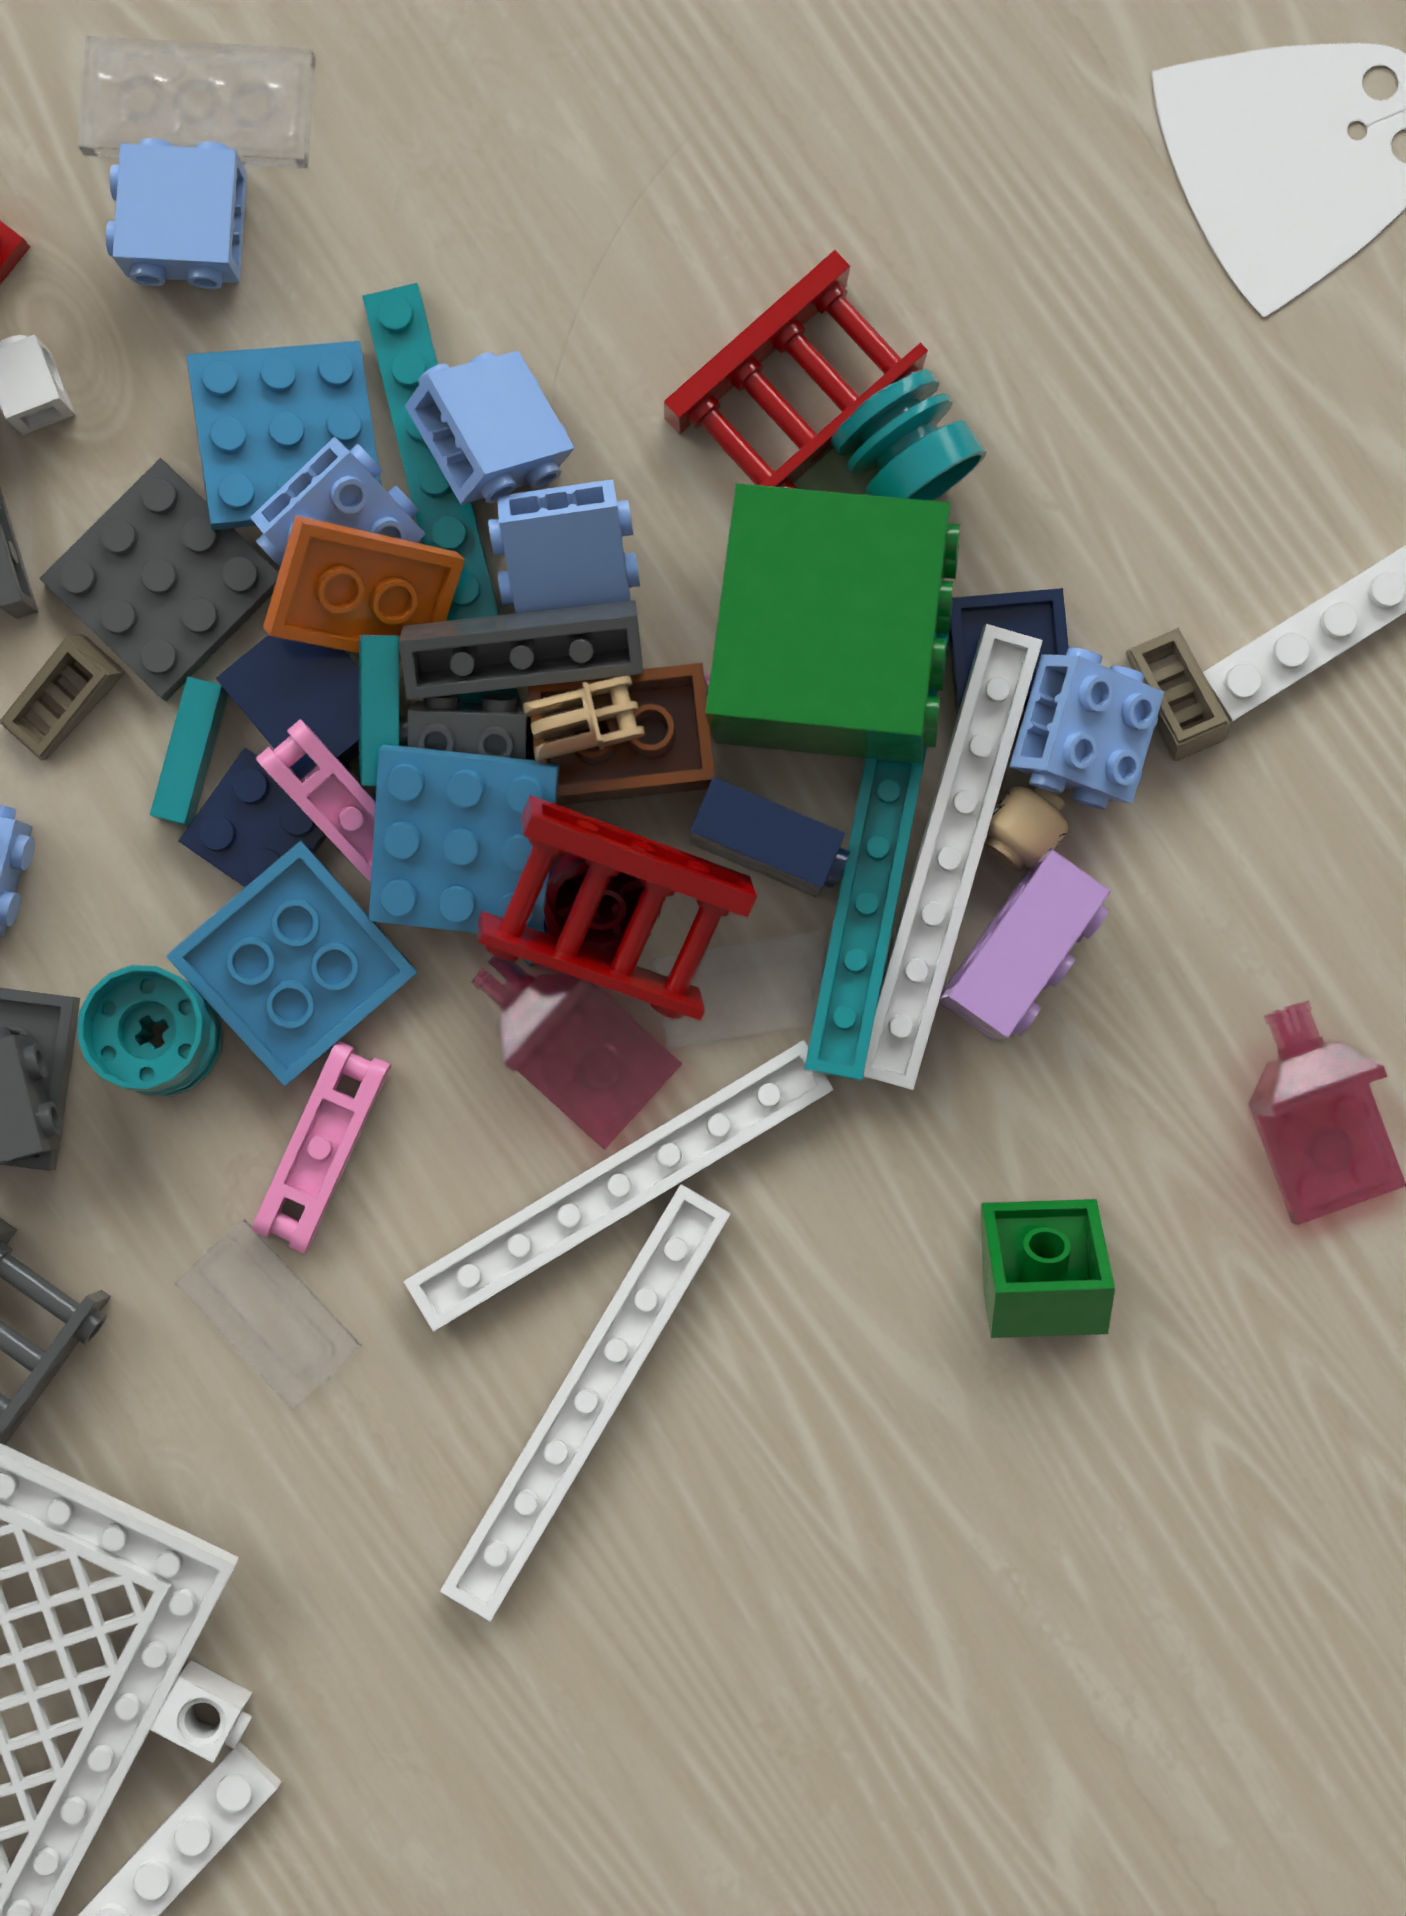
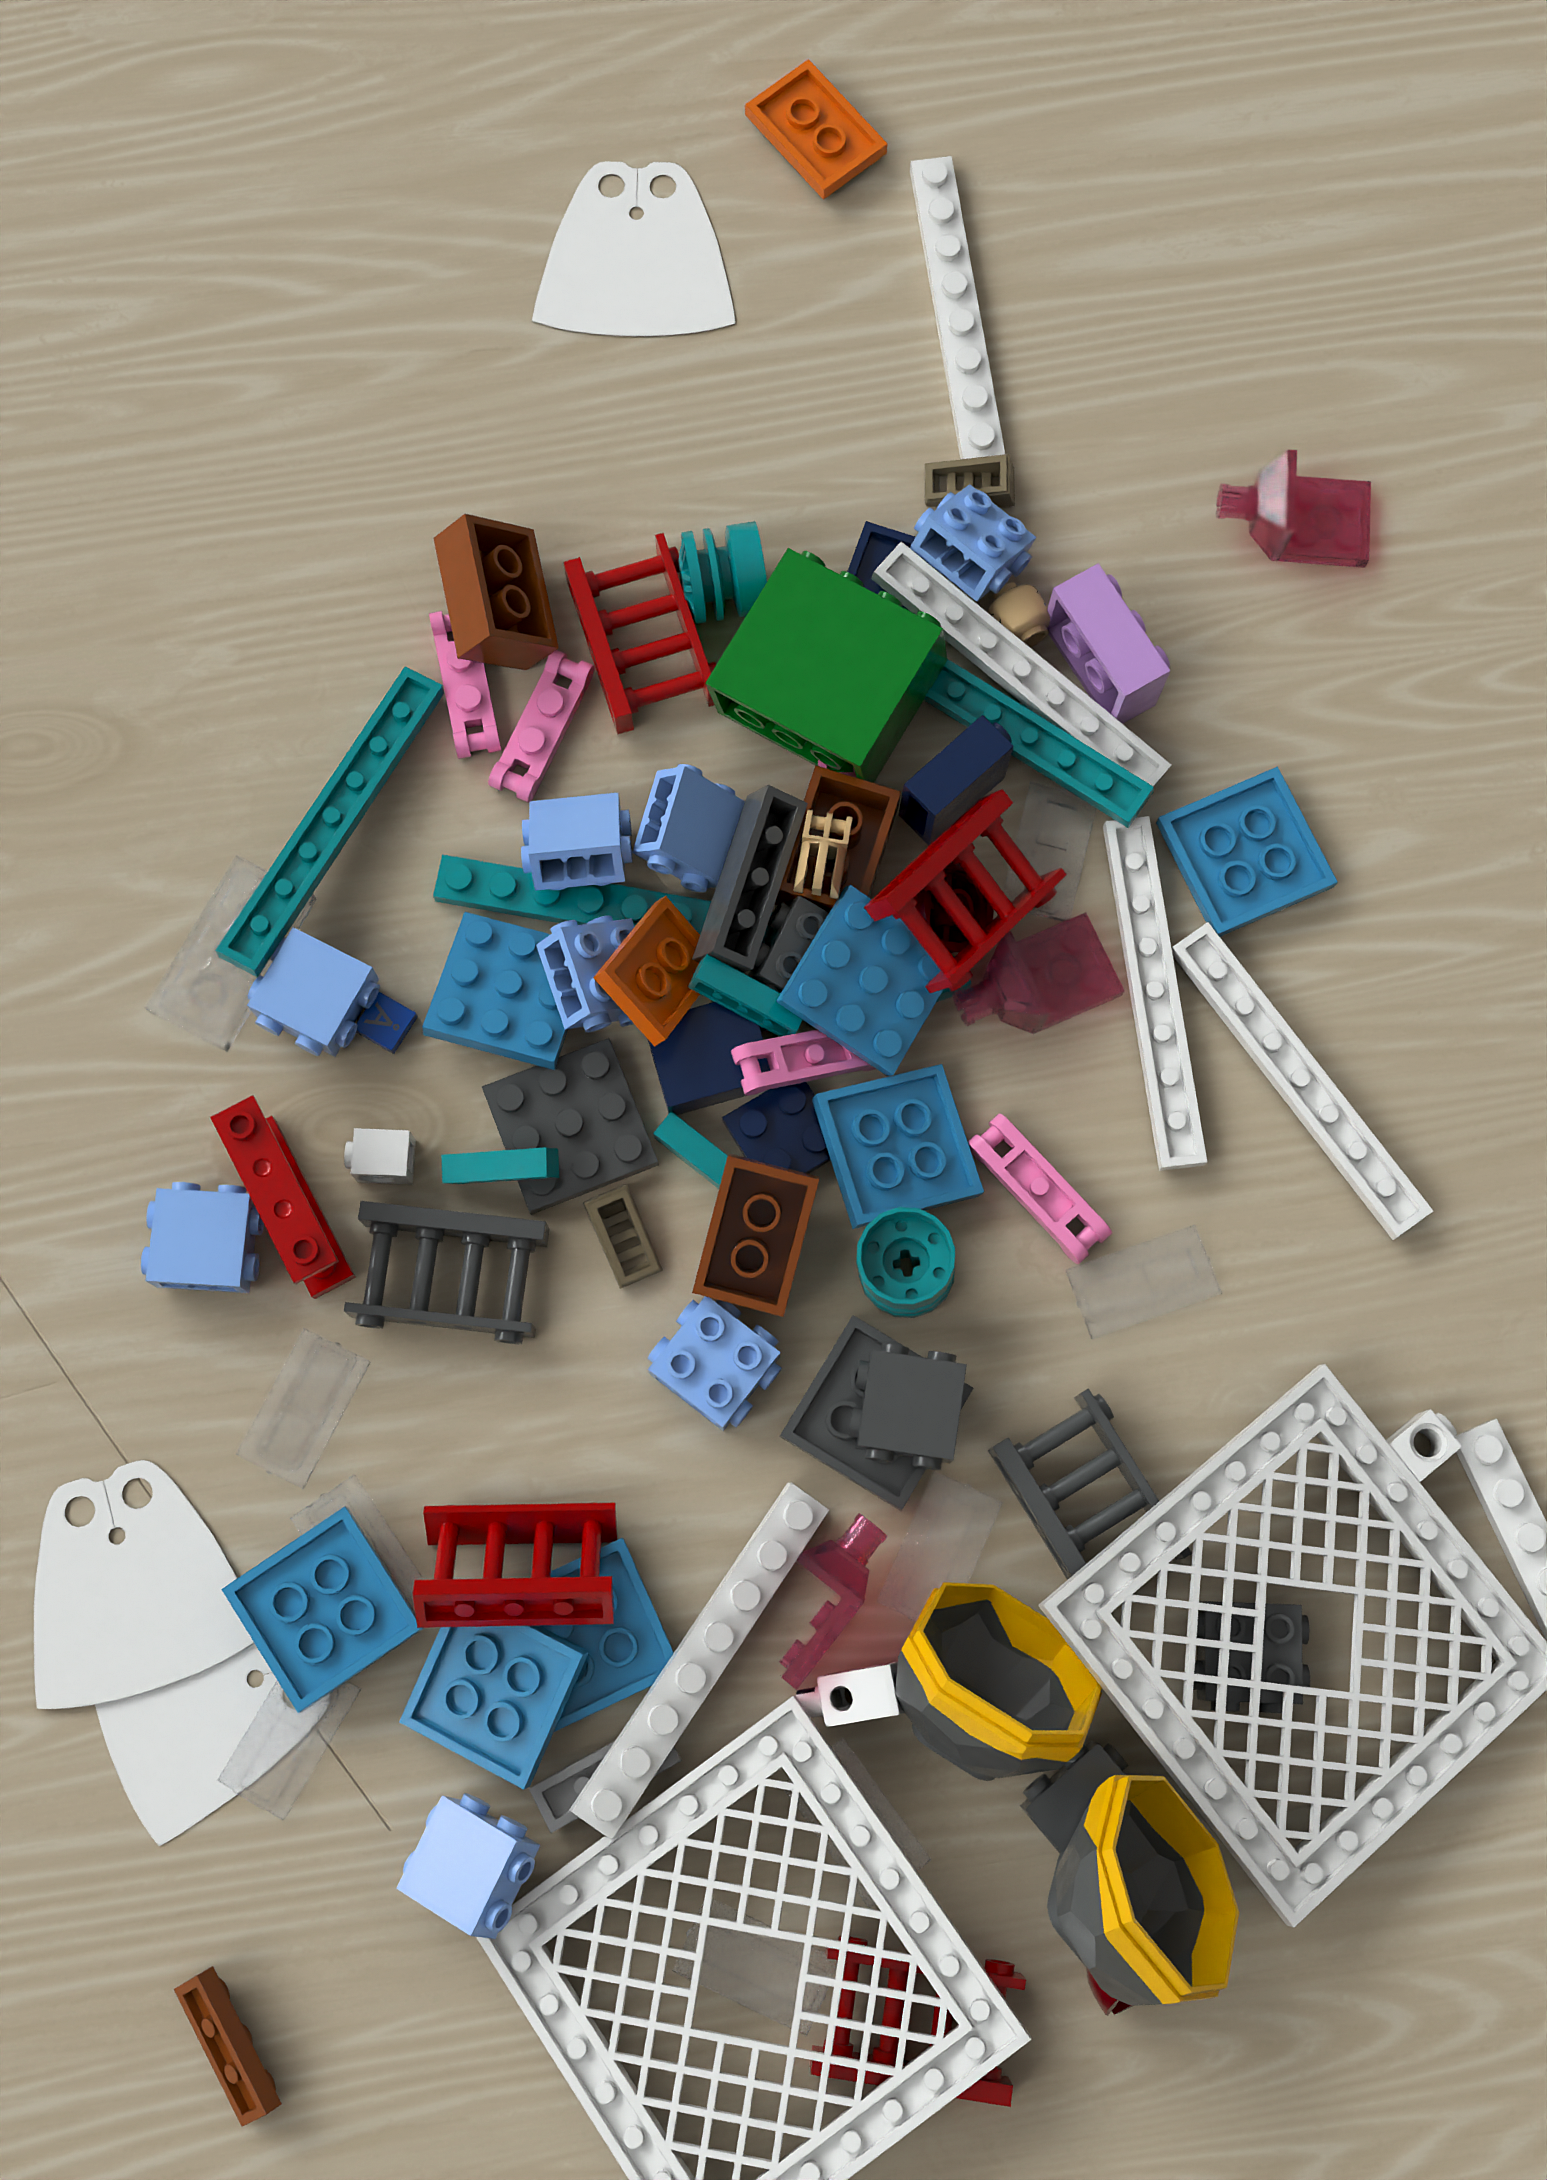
camera: 65 degrees left, 10 degrees down
(68, 520) = (500, 1166): none -> teal piece
(108, 844) = (755, 1235): none -> dark orange brick
(191, 315) = (386, 1023): none -> blue tile
(391, 133) = (330, 822): none -> teal plate
(629, 324) = (542, 726): none -> bright pink plate
(644, 210) = (465, 693): none -> bright pink plate
(756, 186) = (495, 592): none -> dark orange brick
(844, 1225) = (1246, 852): none -> dark azure plate
(1045, 1268) = (1333, 731): green slope -> none

